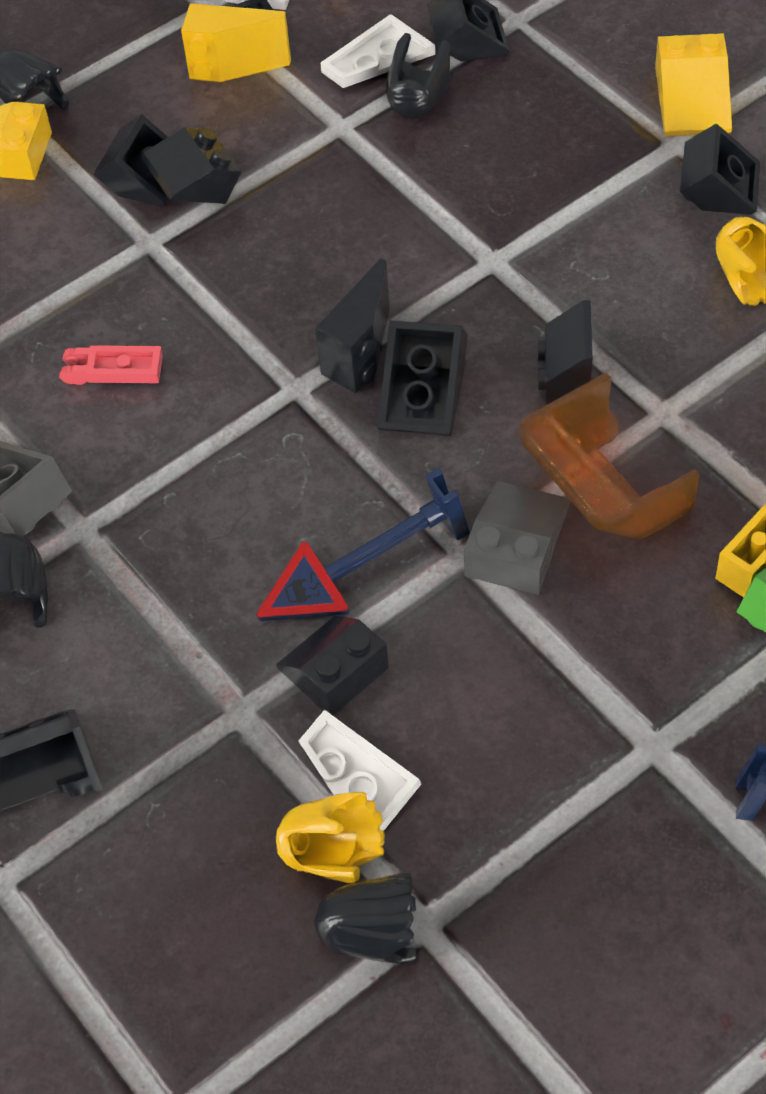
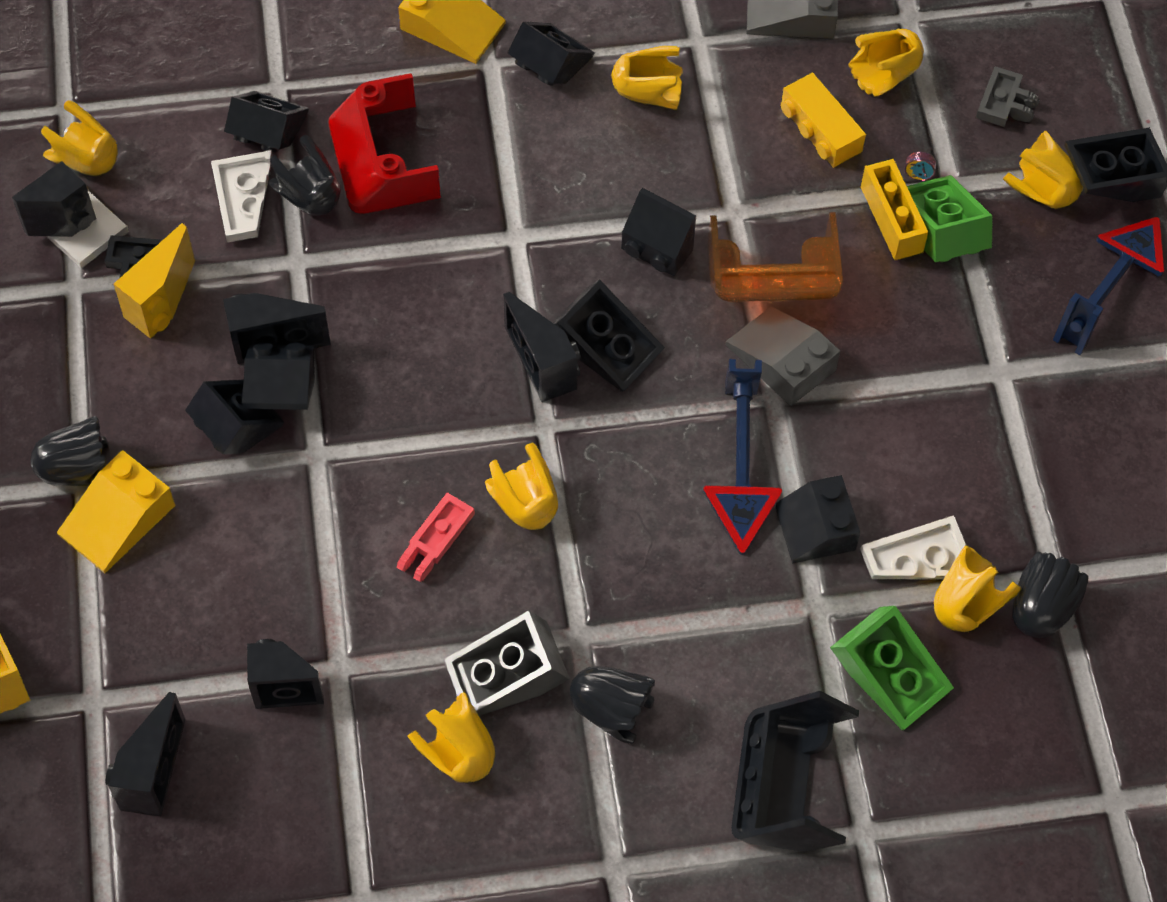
camera: 65 degrees left, 5 degrees up
(196, 402) = (525, 493): none -> yellow hair
(198, 811) = (892, 666): none -> bright green slope
(233, 117) = (274, 320): none -> black slope
(454, 128) = (373, 180): none -> red windscreen

